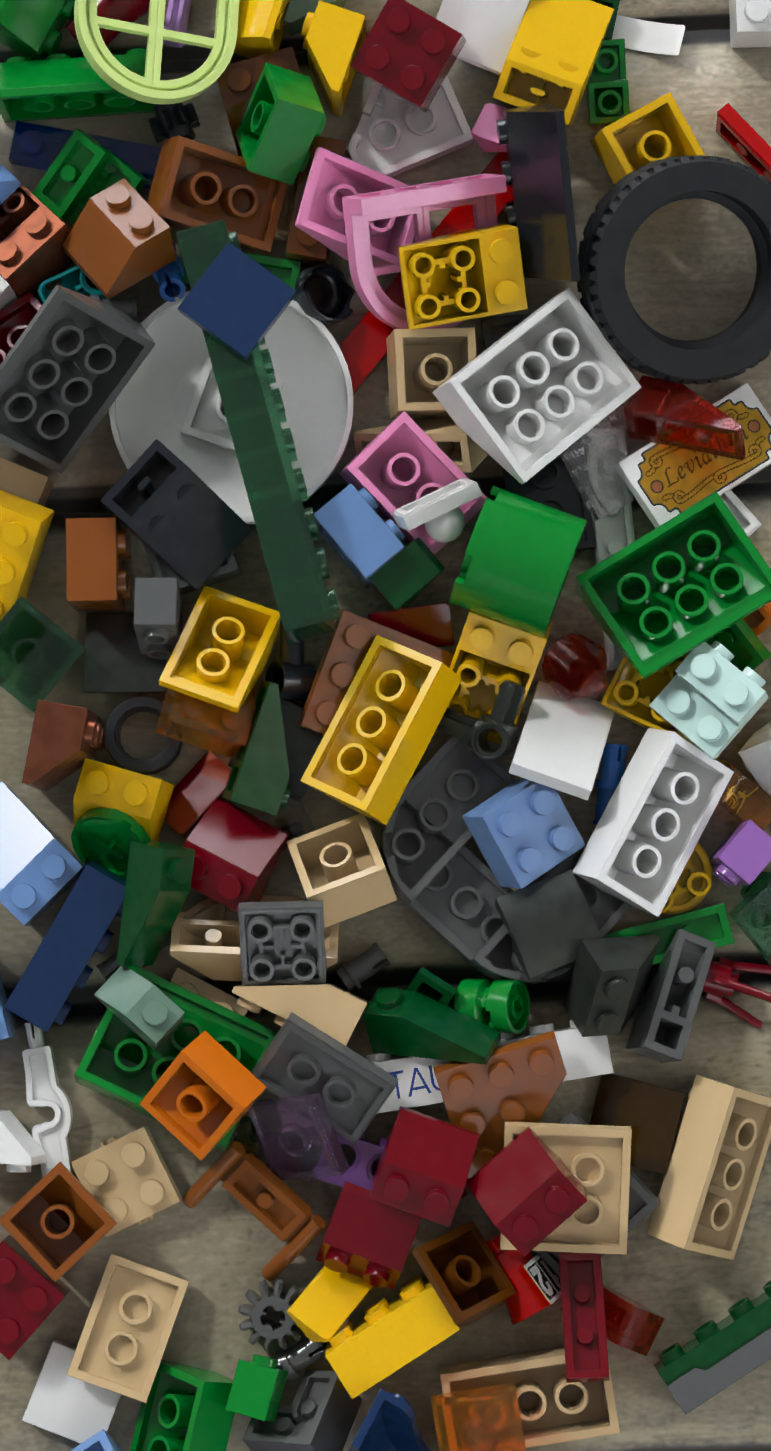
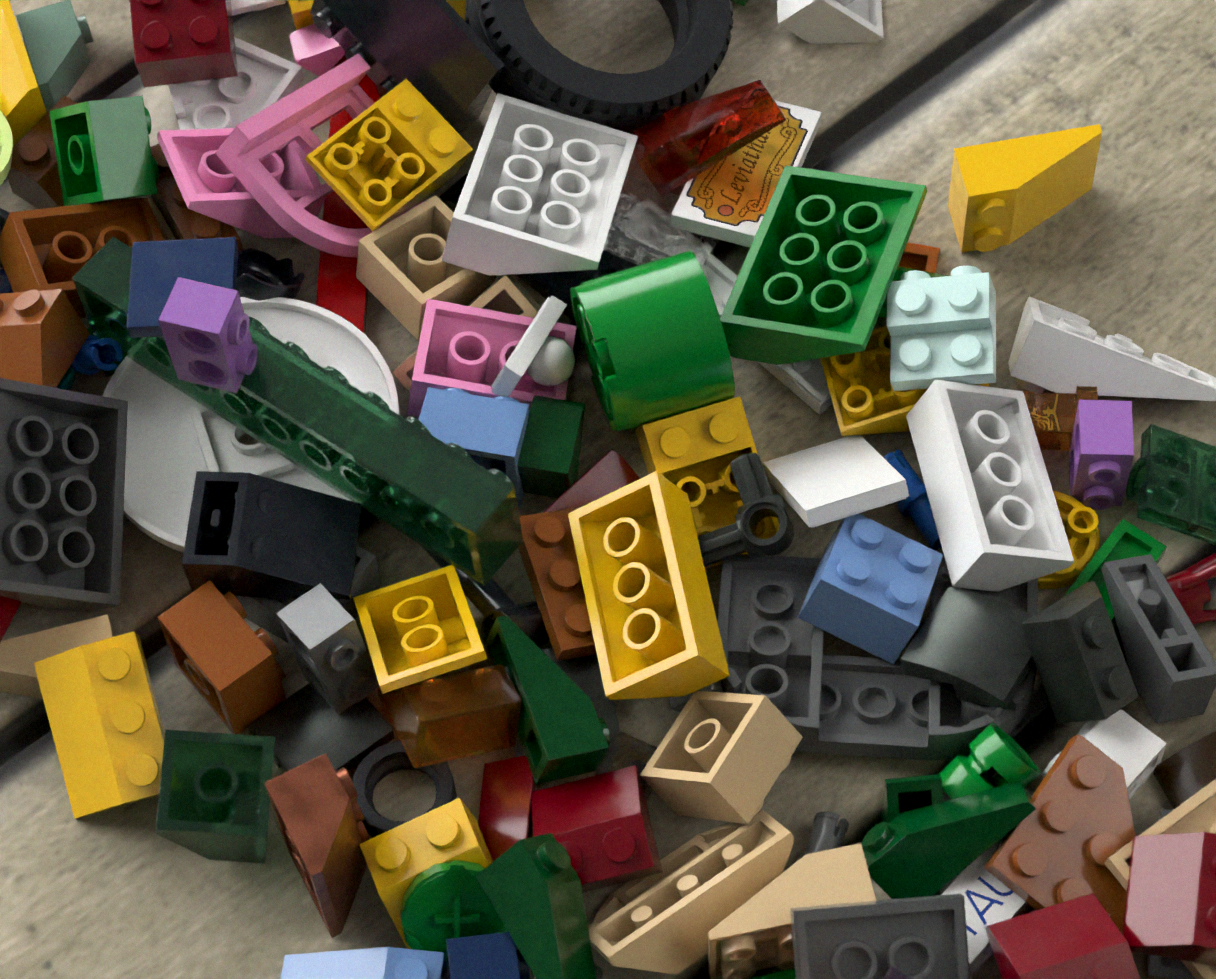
camera: 35 degrees left, 25 degrees down
(216, 366) = (208, 335): none -> medium lavender brick
(282, 943) = (720, 851): dark grey tile -> none
(332, 43) = (100, 62): yellow slope -> none
(576, 667) = (789, 416): clear red hair -> none

